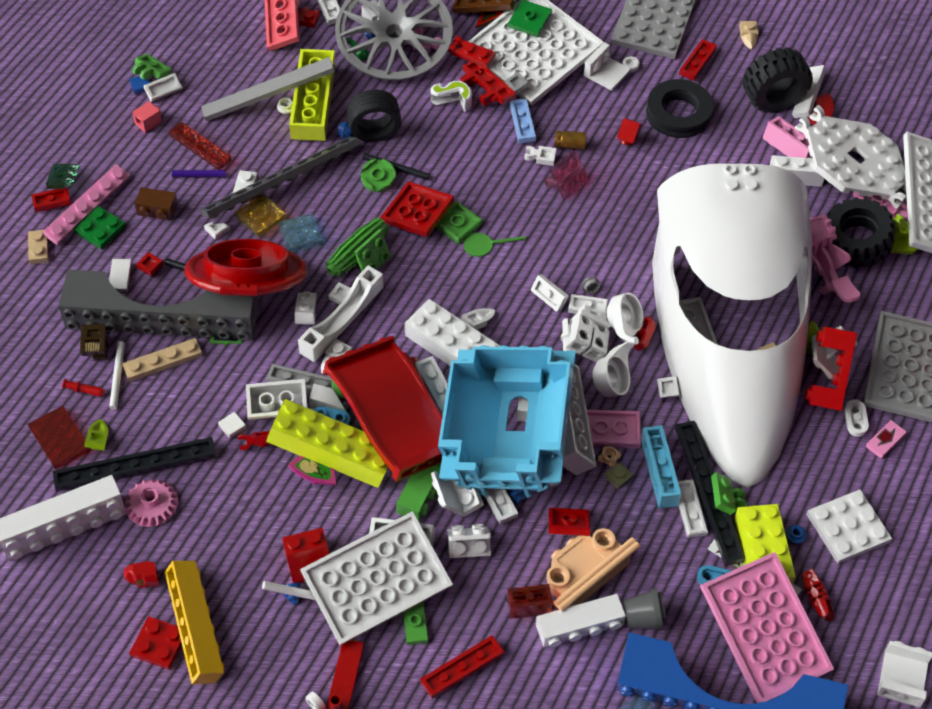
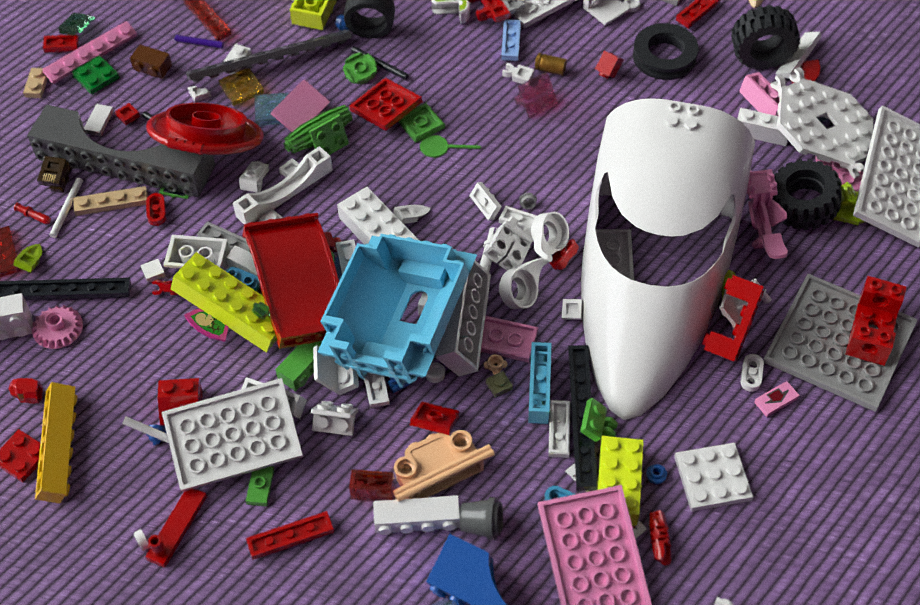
camera: 15 degrees right, 0 degrees up
(214, 362) = (156, 213): none -> red plate
(330, 226) = (300, 106): none -> bright pink tile
(369, 446) = (261, 310): none -> clear green plate

